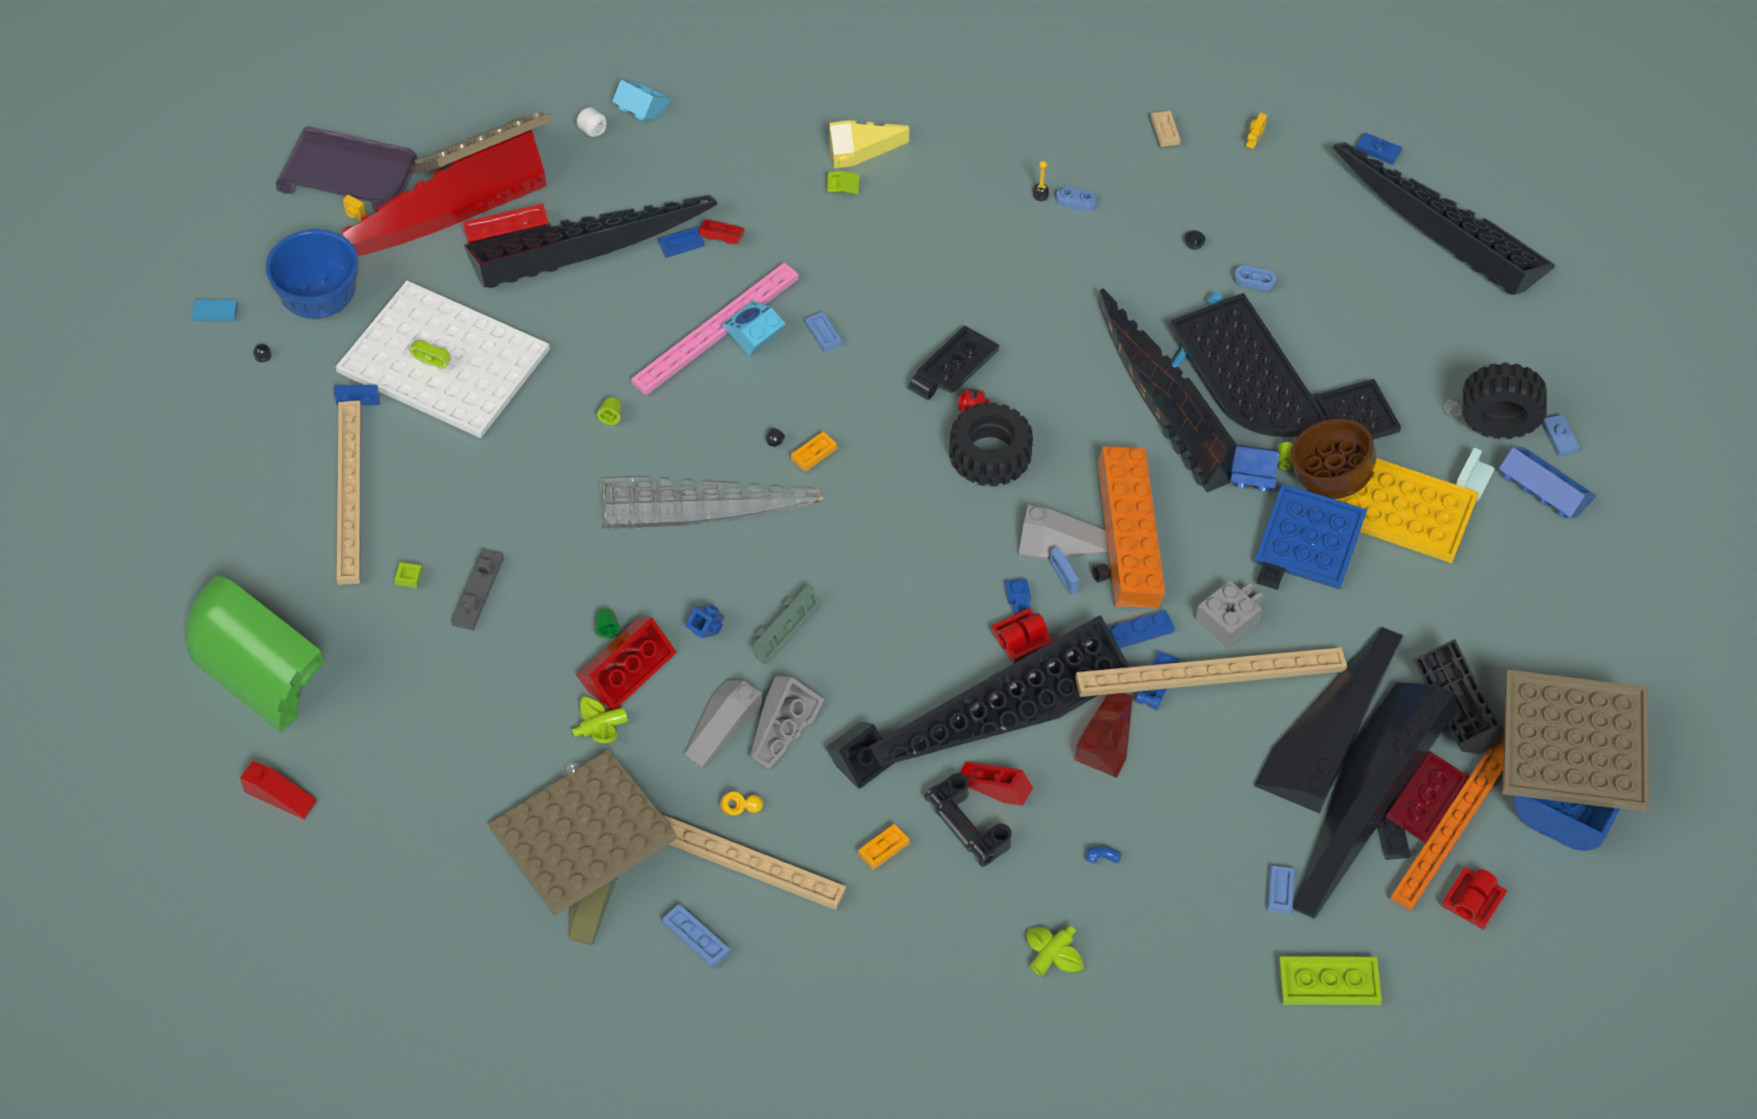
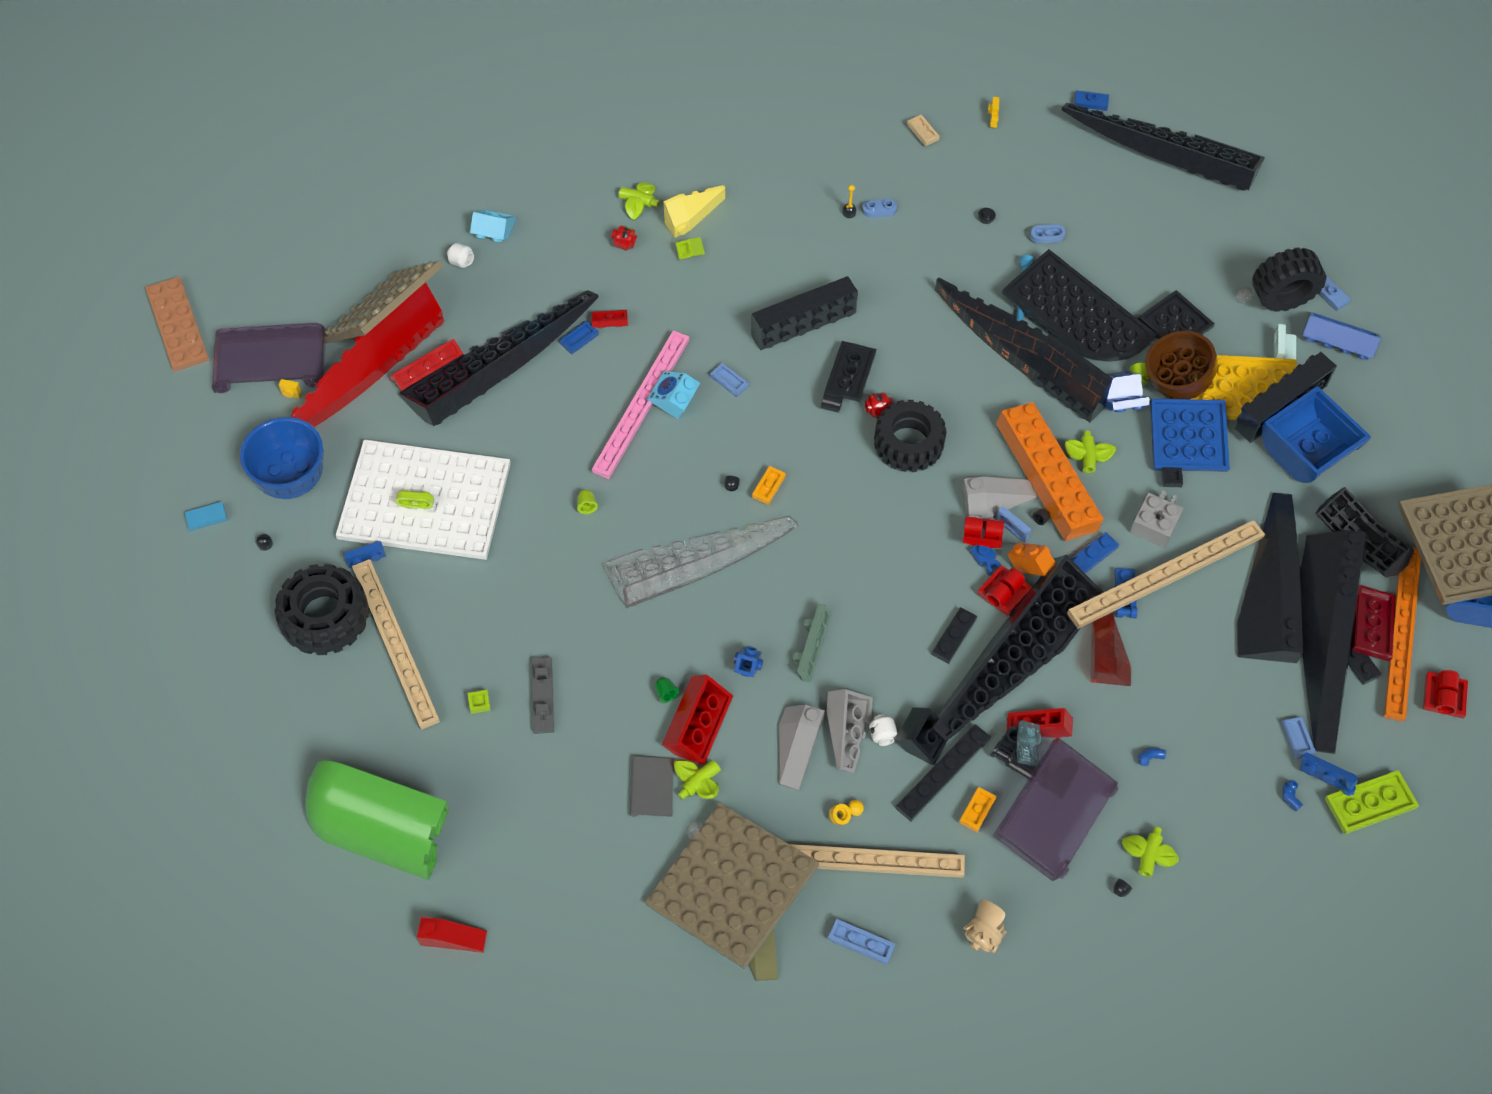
camera: 20 degrees left, 5 degrees up
(269, 111) = (177, 324): none -> nougat plate
(291, 456) = (325, 632): none -> black tyre
(548, 714) = (651, 786): none -> dark grey piece
(775, 152) = (624, 237): none -> red head
(811, 115) = (638, 198): none -> lime plant
(818, 735) = (883, 730): none -> white head
(832, 963) = (986, 927): none -> tan hat
(865, 799) = (942, 772): none -> black plate
(934, 283) = (804, 313): none -> black brick
(945, 665) = (954, 635): none -> black plate
(965, 870) = (1056, 809): none -> clear purple windscreen
(966, 795) = (1027, 743): none -> clear light blue slope
(1003, 976) = (1122, 888): none -> black hinge
(1024, 567) = (983, 531): none -> red plate
(1063, 609) = (1031, 558): none -> orange brick
(1188, 521) = (1089, 451): none -> lime plant
(1240, 944) = (1289, 792): none -> blue arm
(1292, 933) = (1329, 773): none -> blue plate
(1437, 525) = (1291, 387): none -> black brick
(1449, 574) = (1312, 436): none -> blue container

